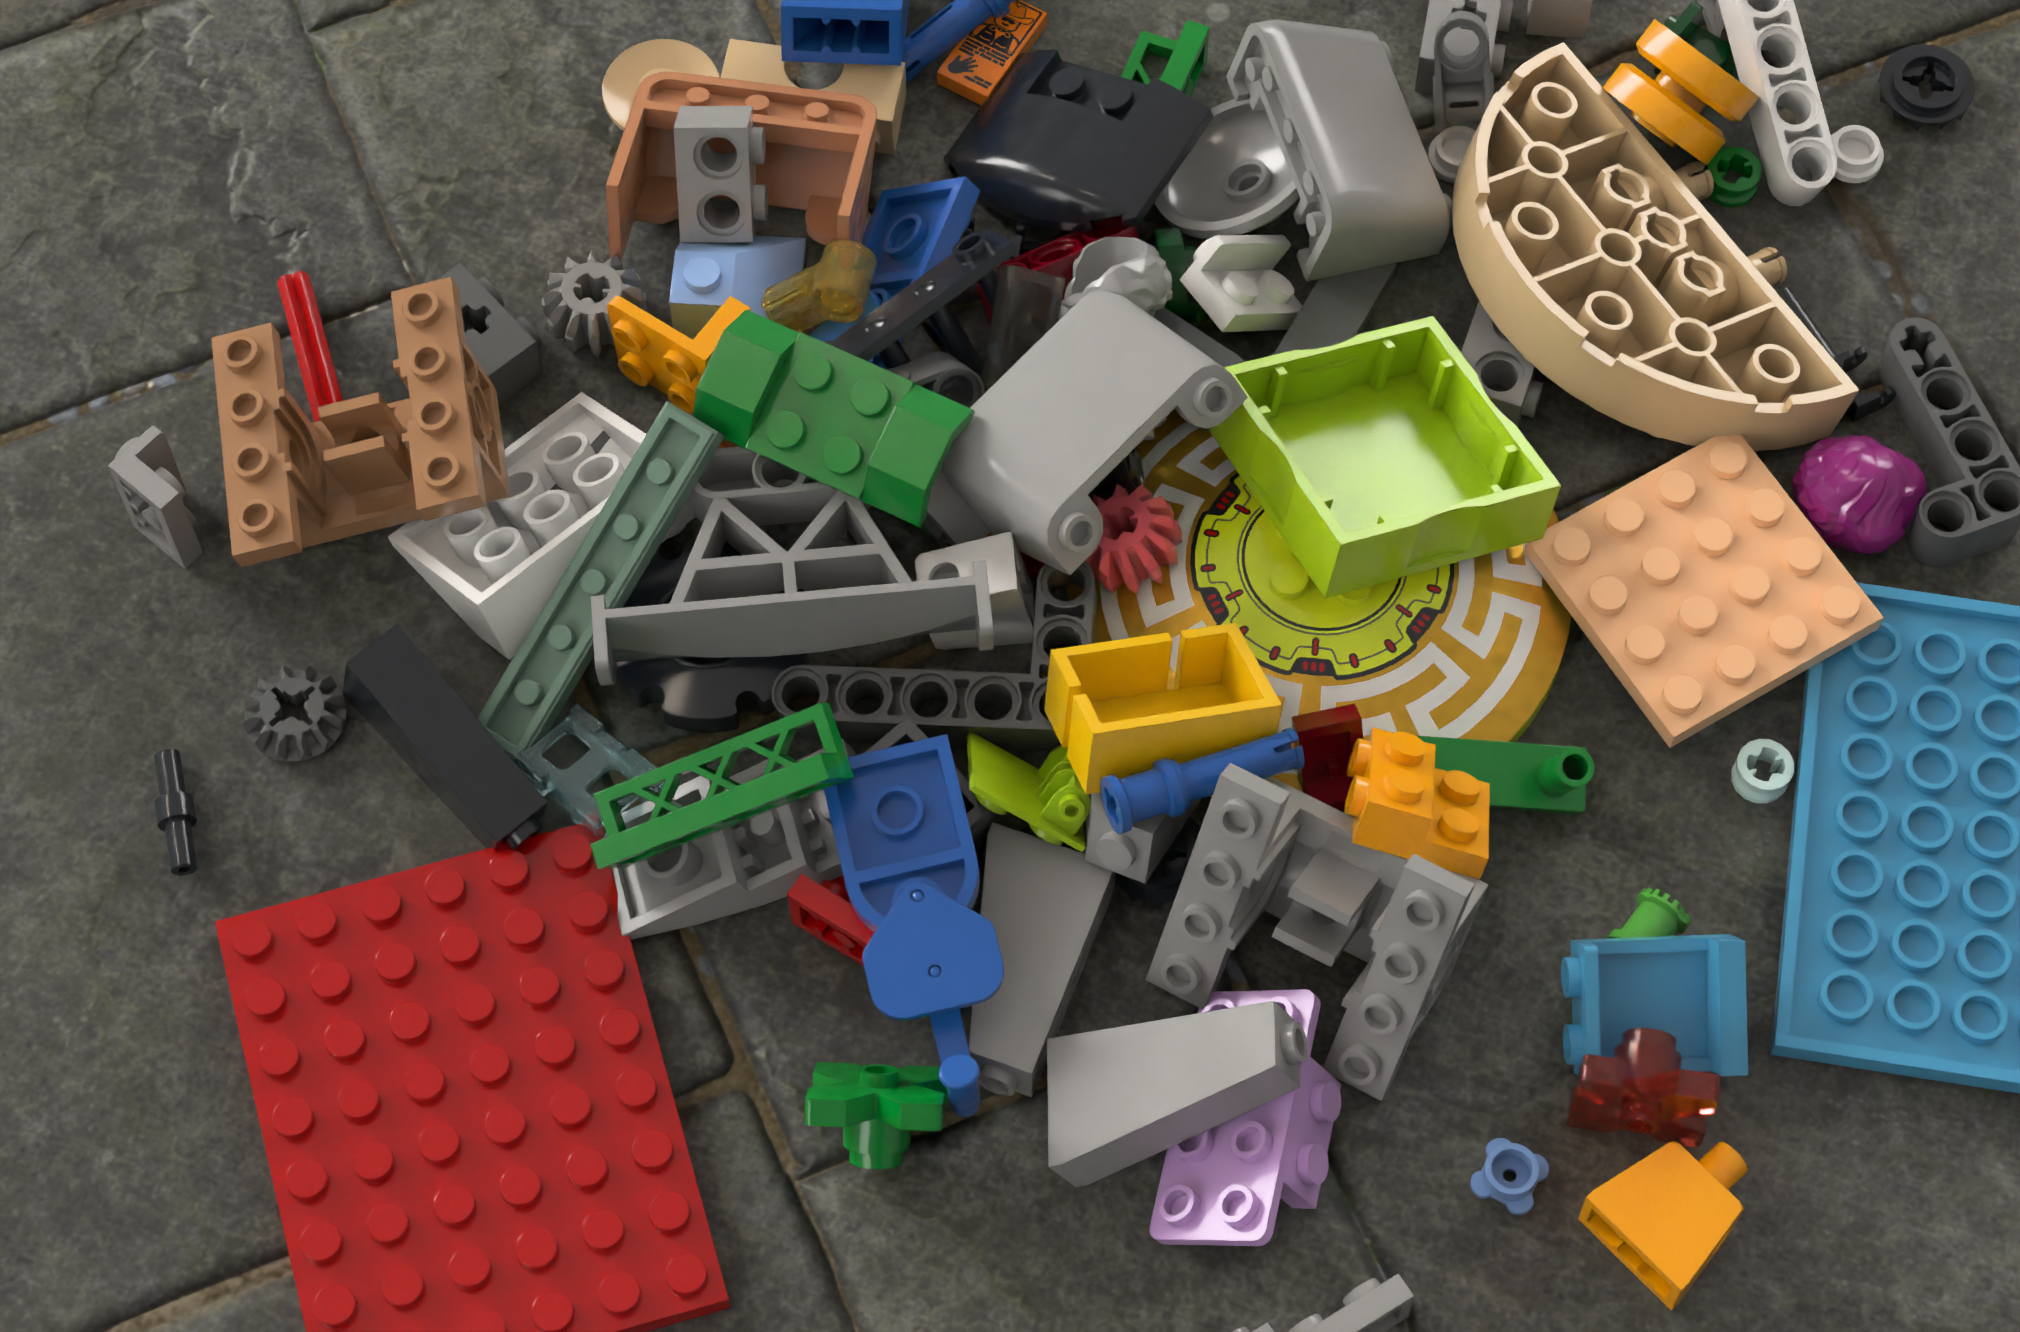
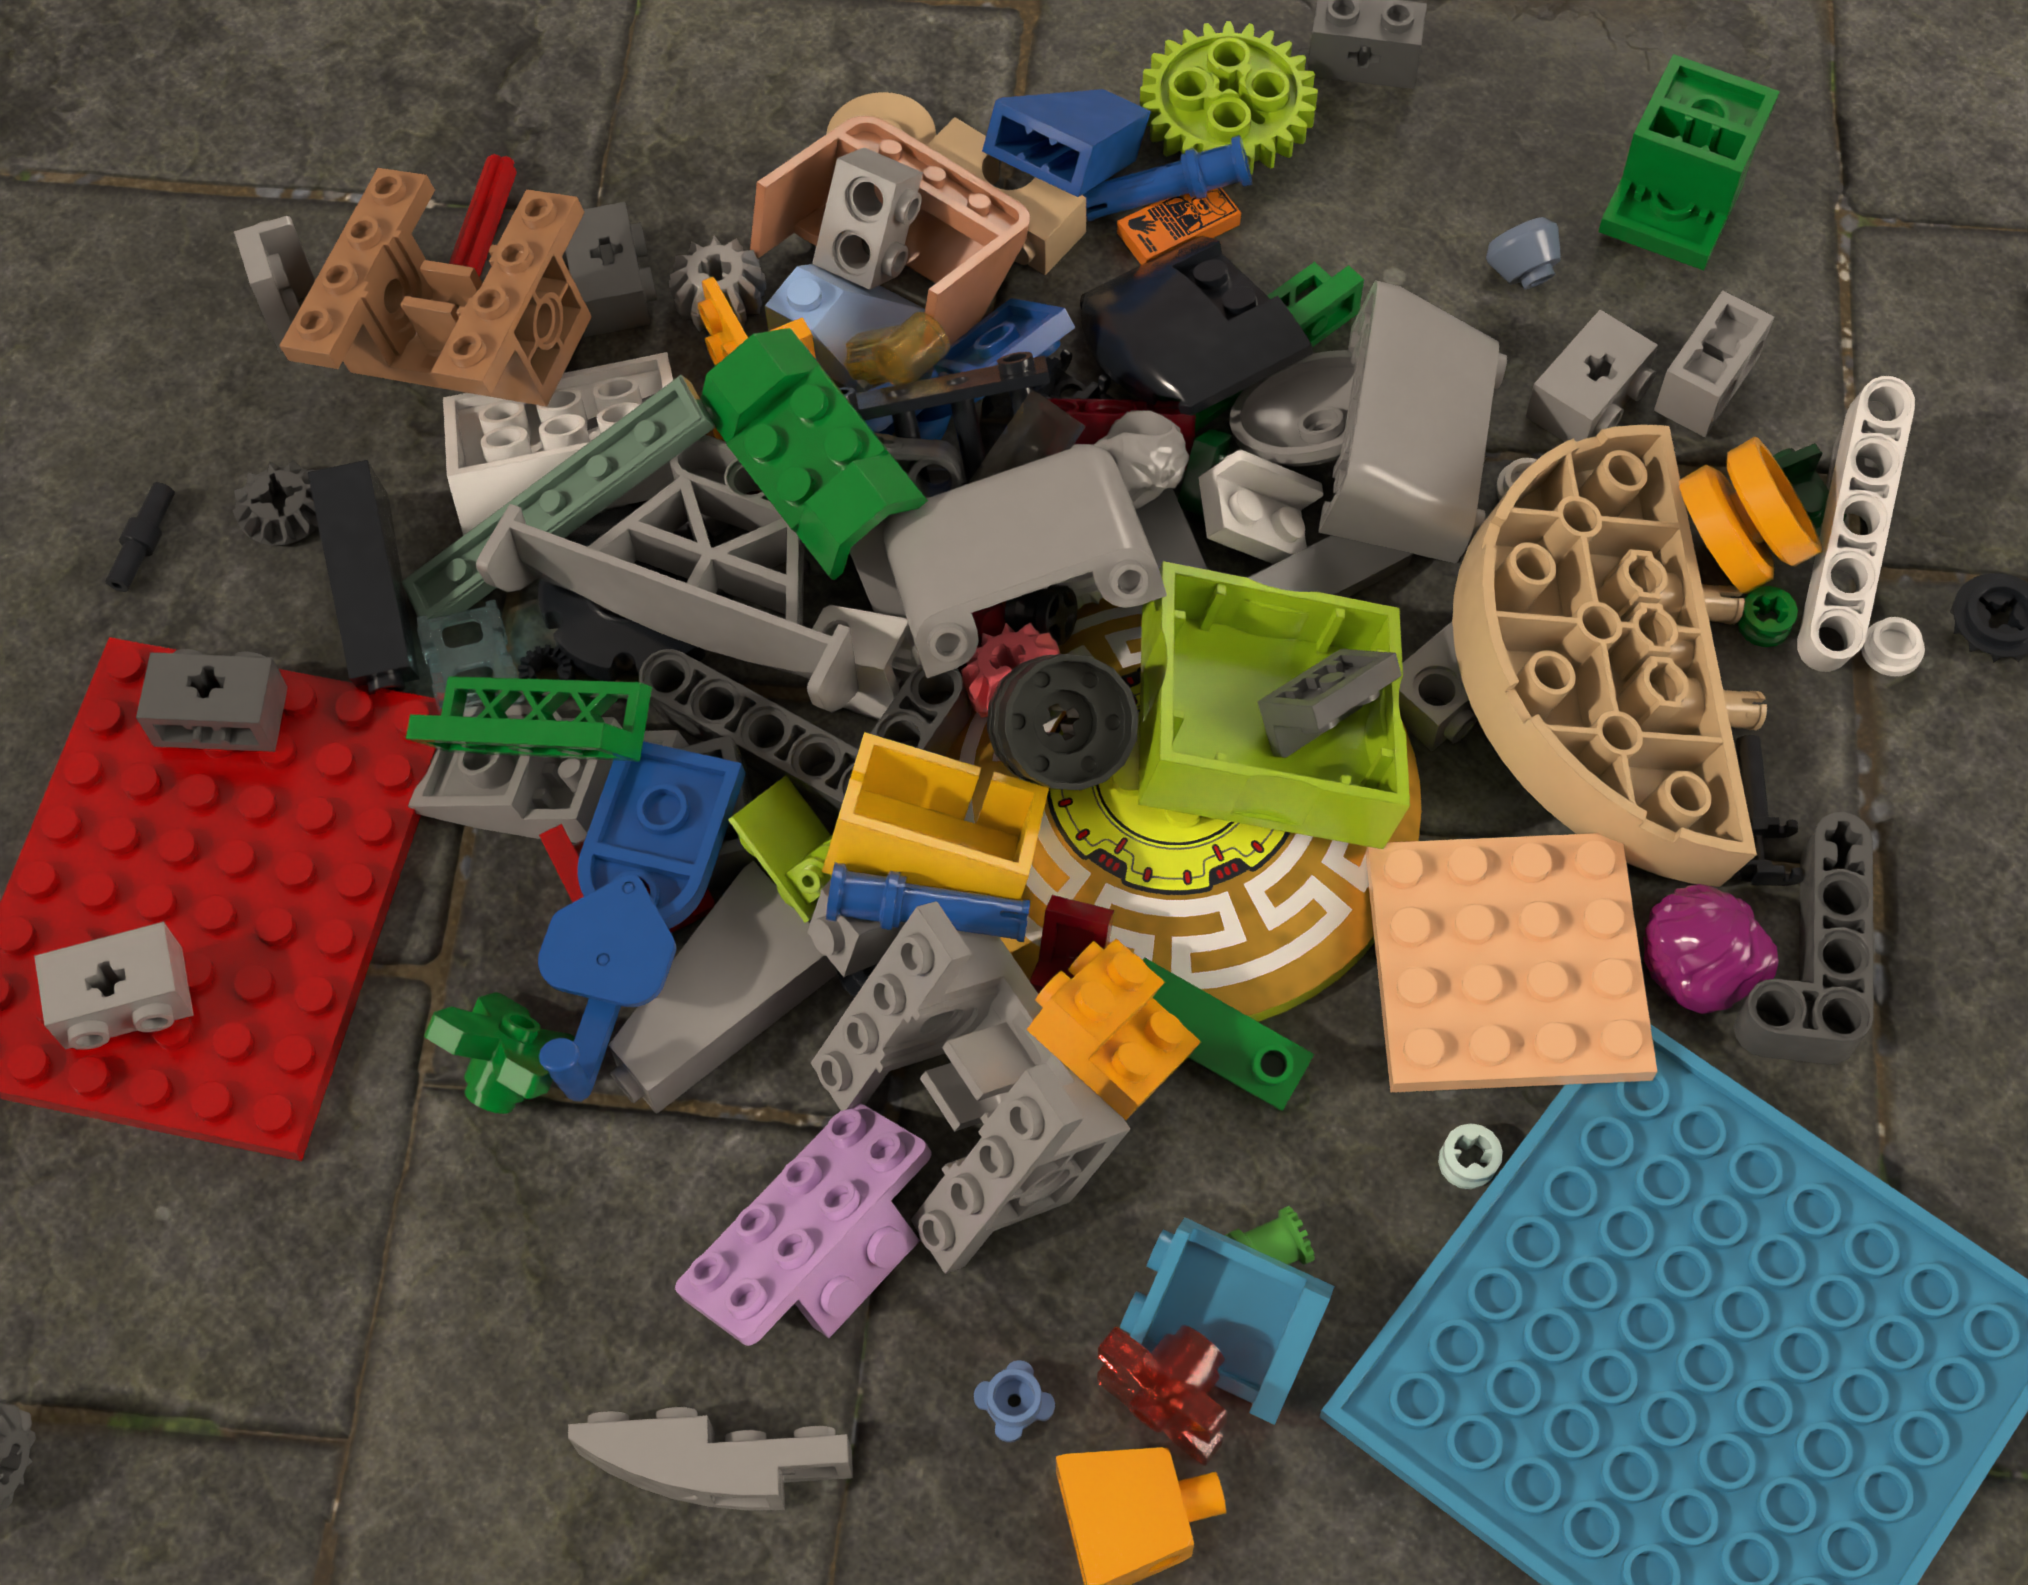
camera: 30 degrees right, 0 degrees up
(363, 955) = (212, 701): none -> dark grey brick
(479, 1200) = (113, 986): none -> light grey brick
(666, 732) = (545, 658): none -> black bush
(1161, 1082) = (747, 1157): light grey slope -> none
(1233, 532) = (1094, 736): none -> pearl dark grey wheel
(1426, 423) = (1324, 697): none -> dark grey bracket
(1461, 77) = (1553, 413): dark grey piece -> none

